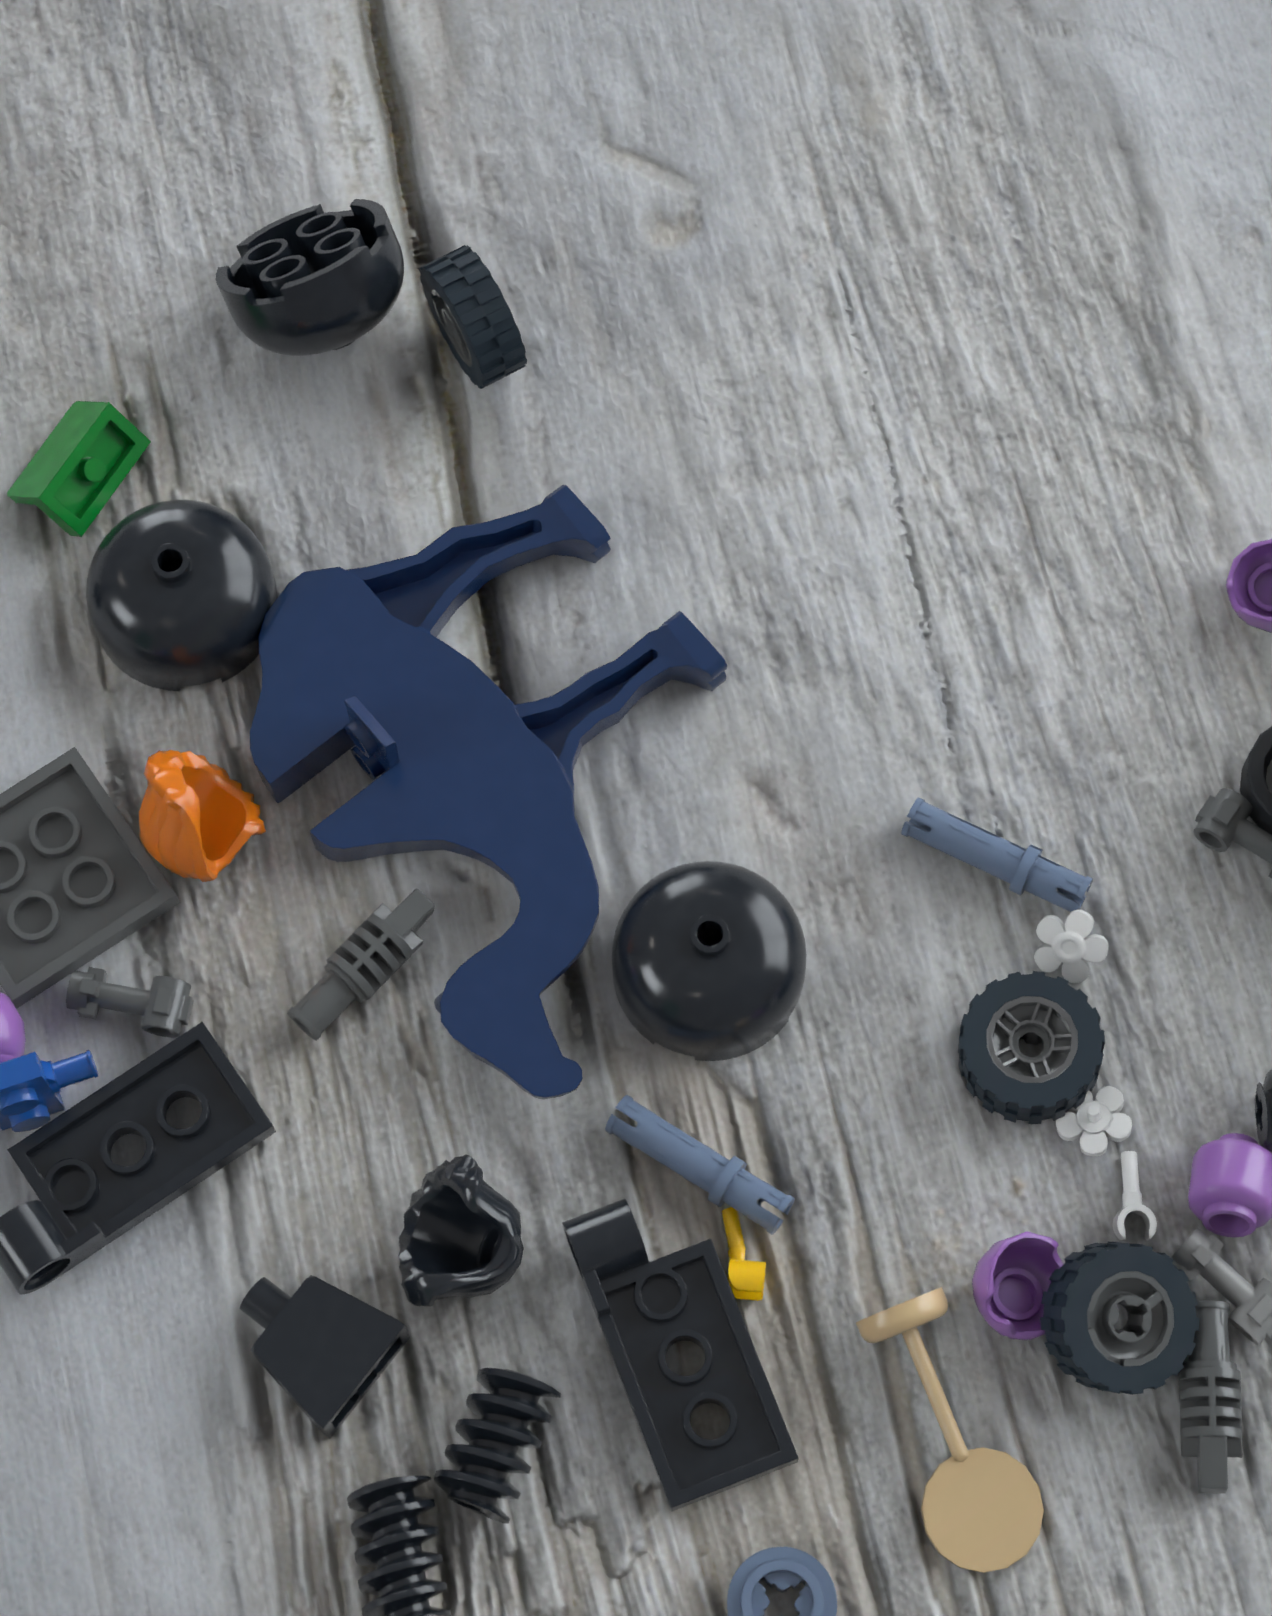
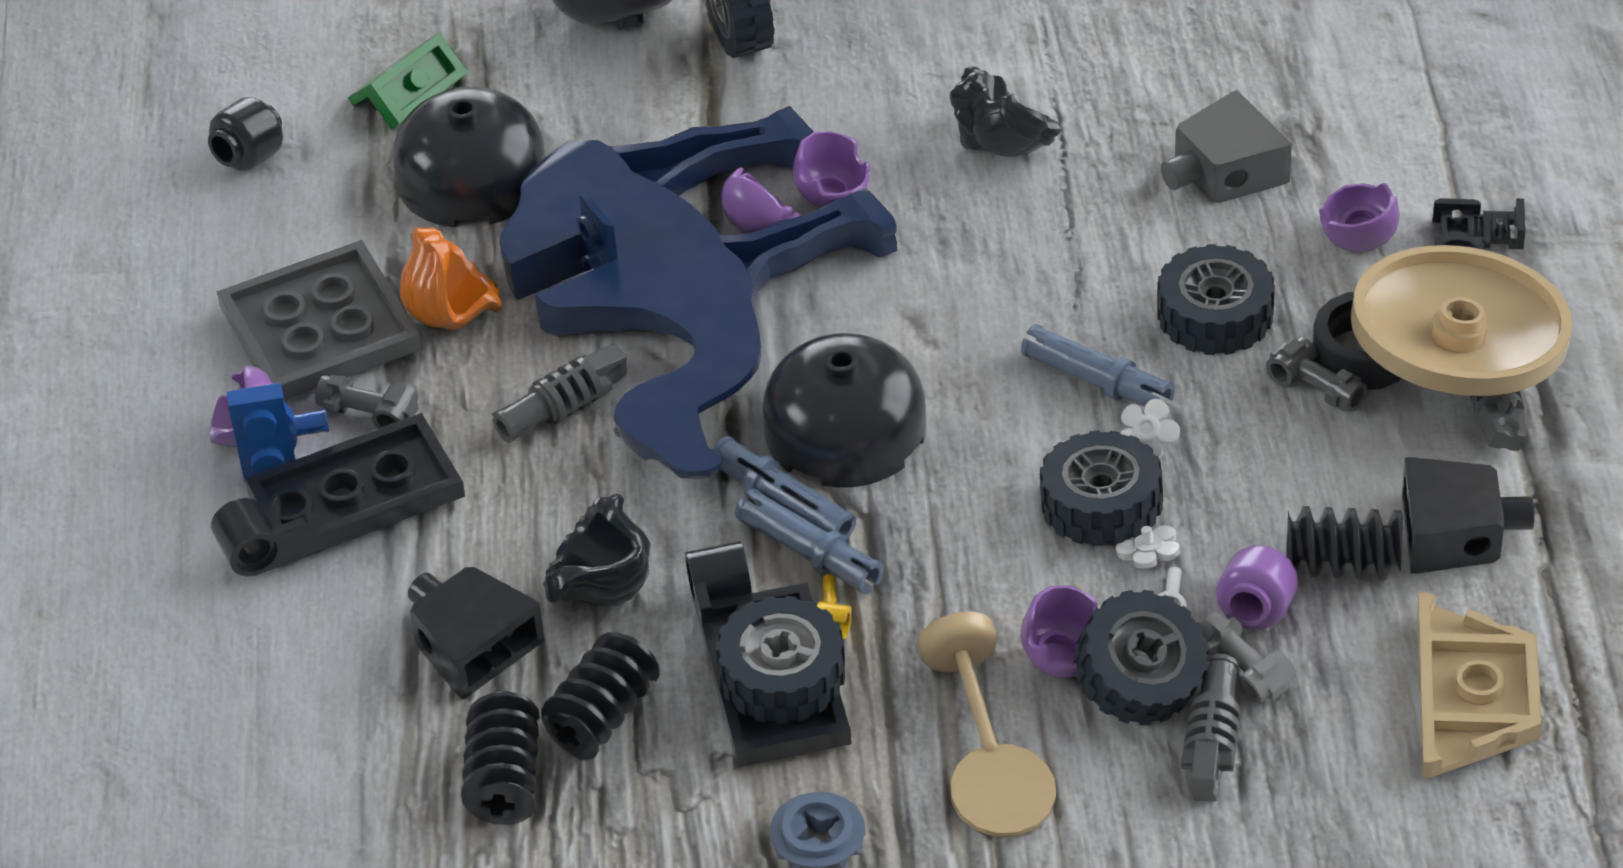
camera: 10 degrees right, 25 degrees down
(550, 642) = (751, 205): none -> medium lavender hair
(631, 577) = (828, 168): none -> medium lavender hair
(670, 1097) = (782, 488): none -> sand blue pin
(671, 1401) = (781, 659): none -> black wheel
(819, 472) = (995, 119): none -> black hair
(1102, 492) = (1228, 151): none -> dark grey torso
(1107, 699) = (1215, 299): none -> black wheel

